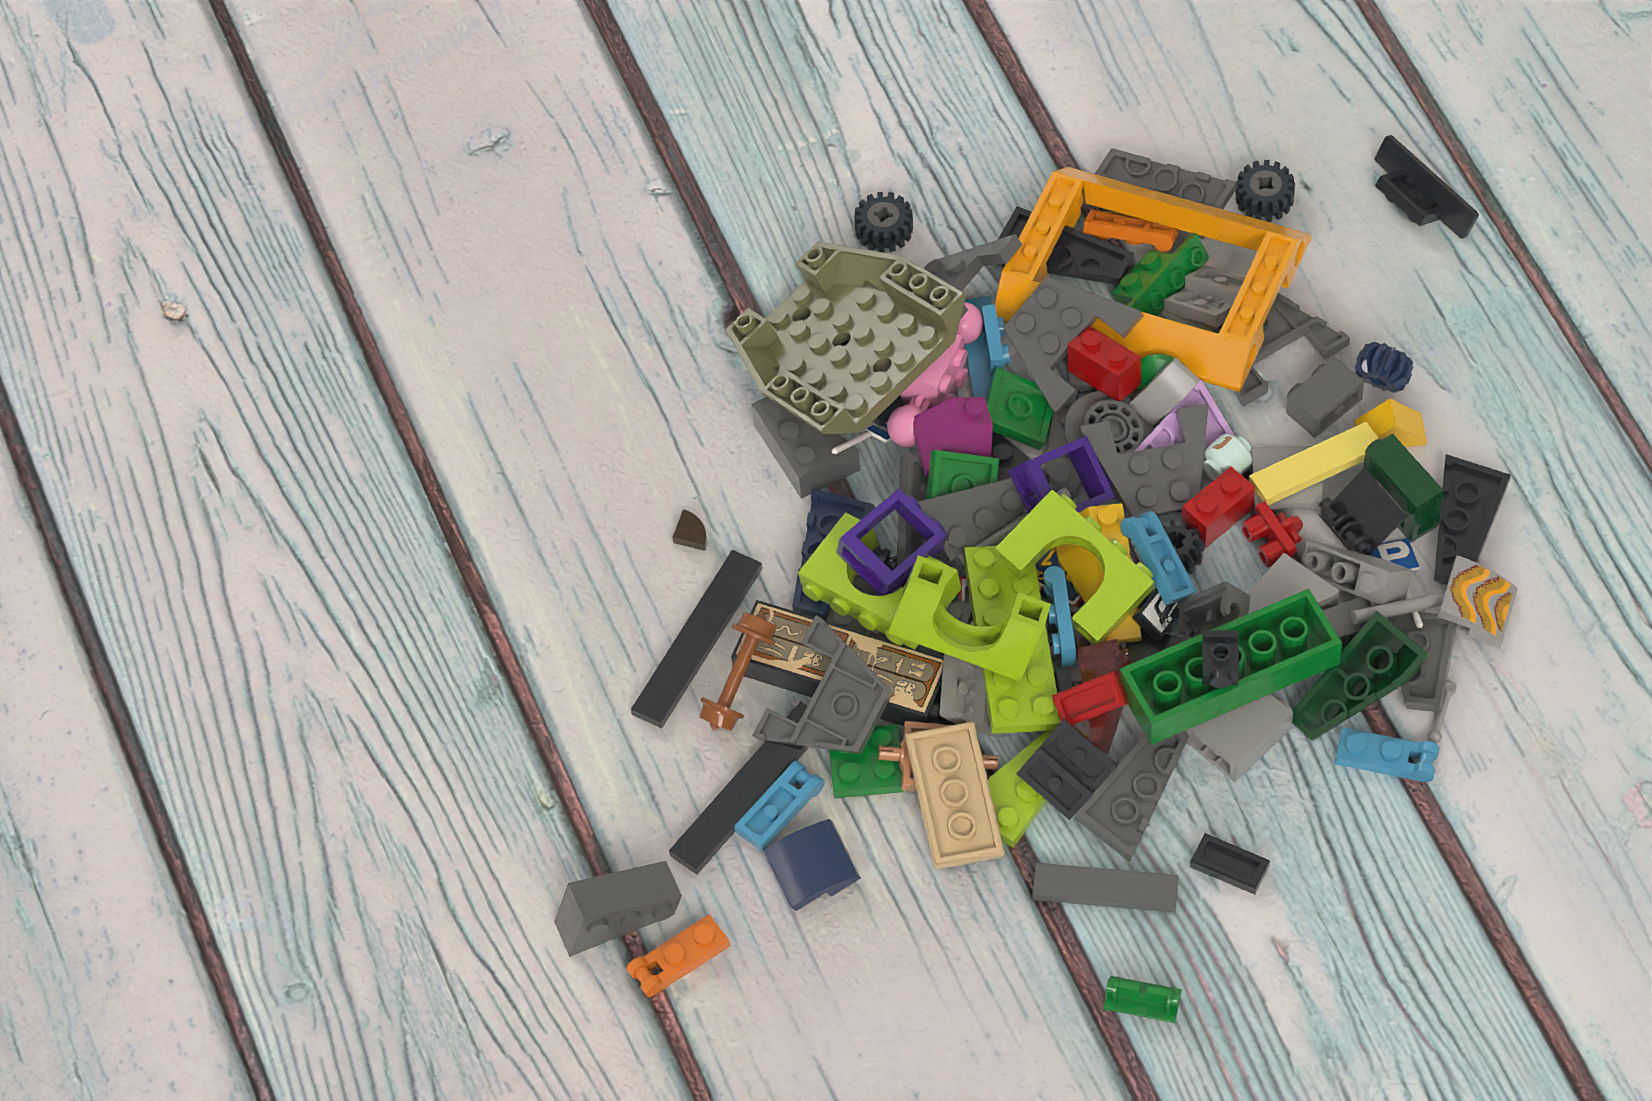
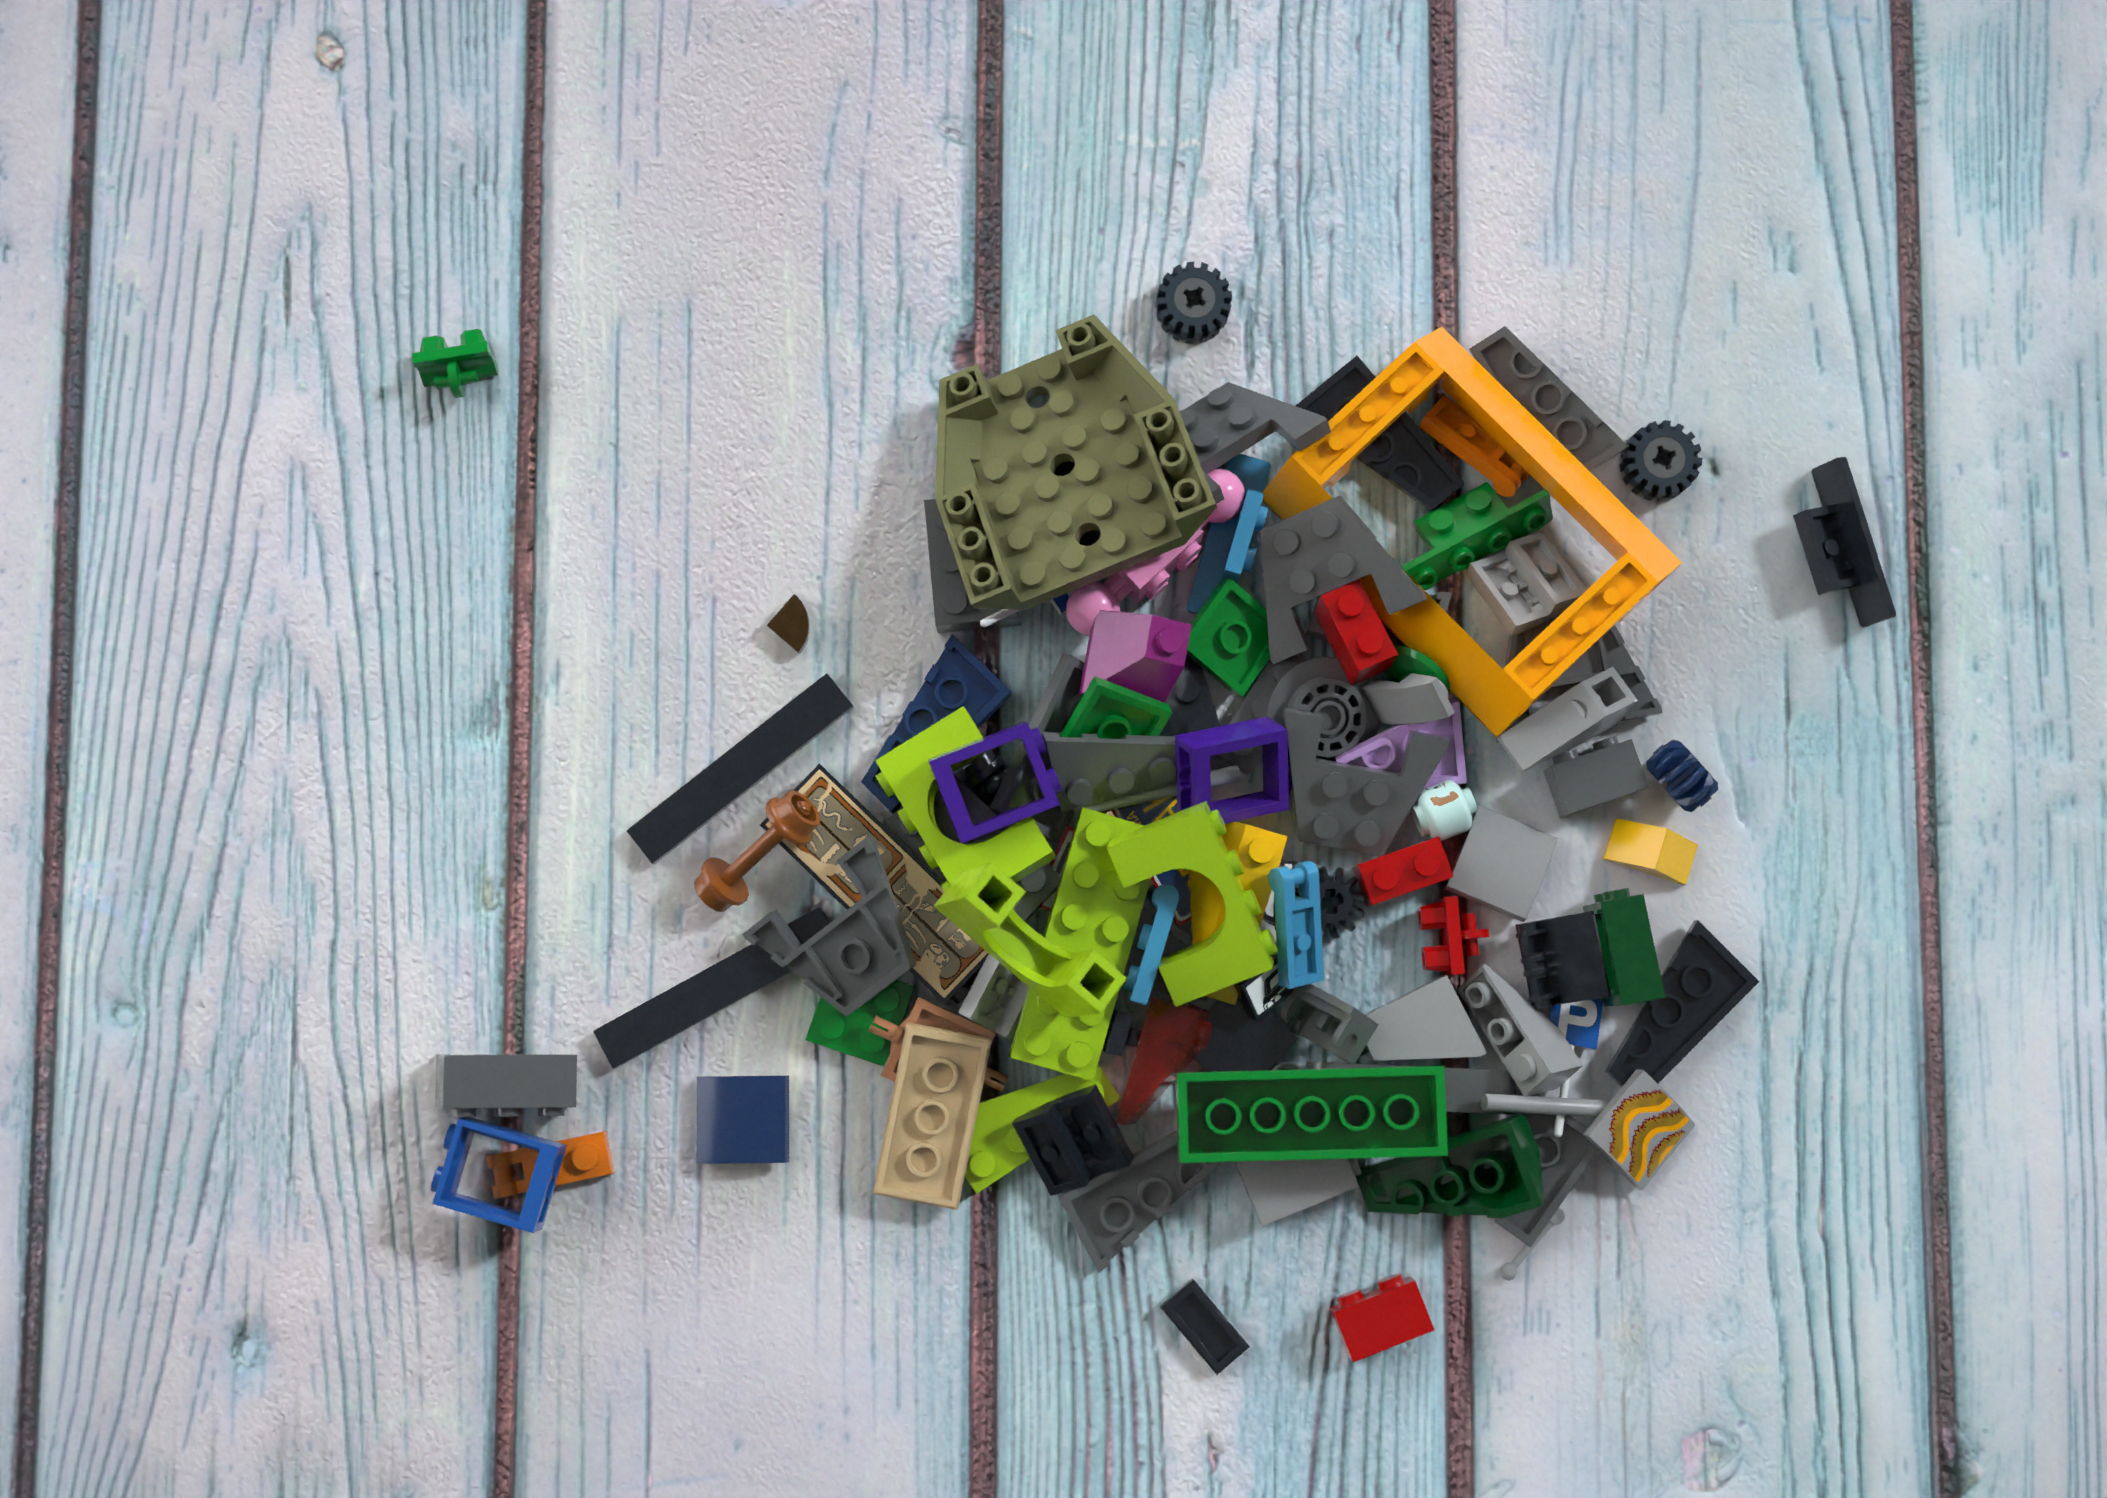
camera: 20 degrees right, 25 degrees up
(360, 460) = (455, 365): none -> green hips
(643, 932) = (541, 1186): none -> blue window
(778, 806) = (737, 1029): dark azure plate -> none
(1091, 698) = (1134, 1077): red tile -> none
(1105, 887) = (1054, 1294): dark grey tile -> none
(1142, 999) = (1031, 1451): green hinge -> none
(1220, 658) = (1293, 1108): black brick -> none
(1288, 359) = (1569, 720): none -> light grey slope
(1313, 464) = (1541, 870): light yellow tile -> none
(1356, 798) = (1381, 1317): none -> red brick
(1387, 755) = (1442, 1270): dark azure plate -> none

